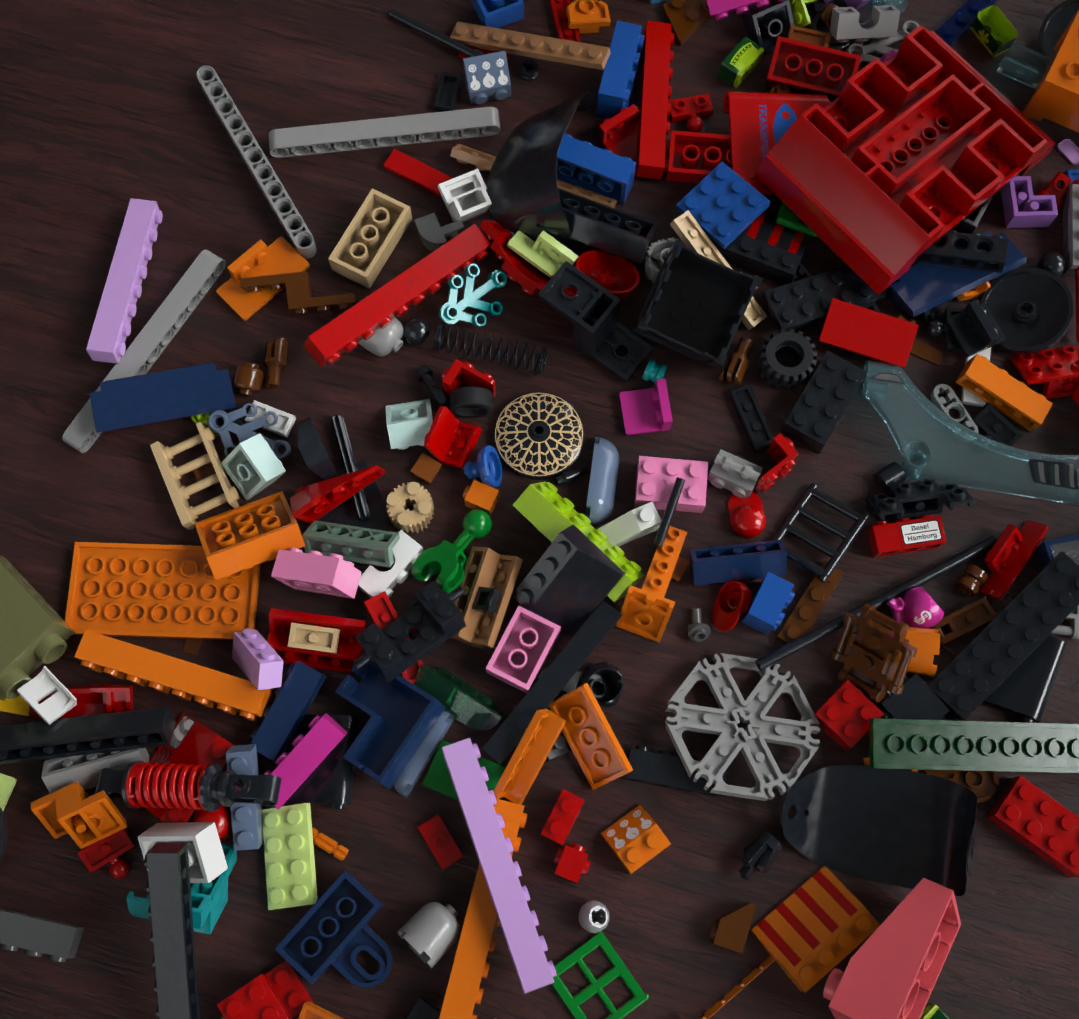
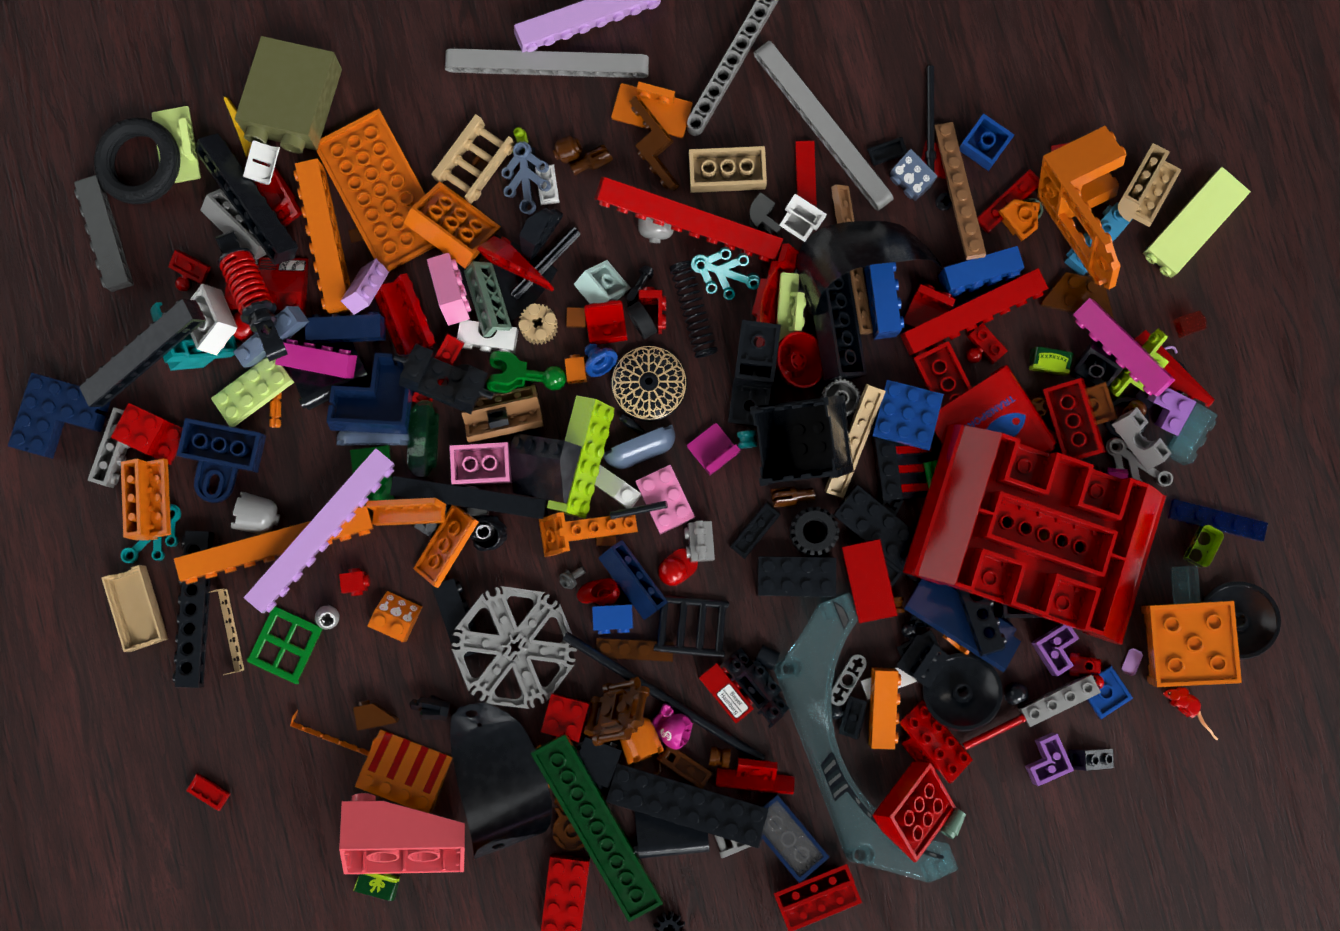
camera: 60 degrees right, 10 degrees up
(79, 815) = (197, 235): orange bracket -> none
(161, 396) = (514, 99): dark blue slope -> none
(253, 466) = (503, 196): light aqua slope -> none
(313, 638) = (402, 315): tan plate -> none
(416, 331) = (675, 247): black piece -> none
(440, 842) = (319, 485): red plate -> none
(562, 817) = (381, 558): red brick -> none
(784, 455) = (737, 567): red bracket -> none
(927, 352) = (887, 633): reddish brown window -> none

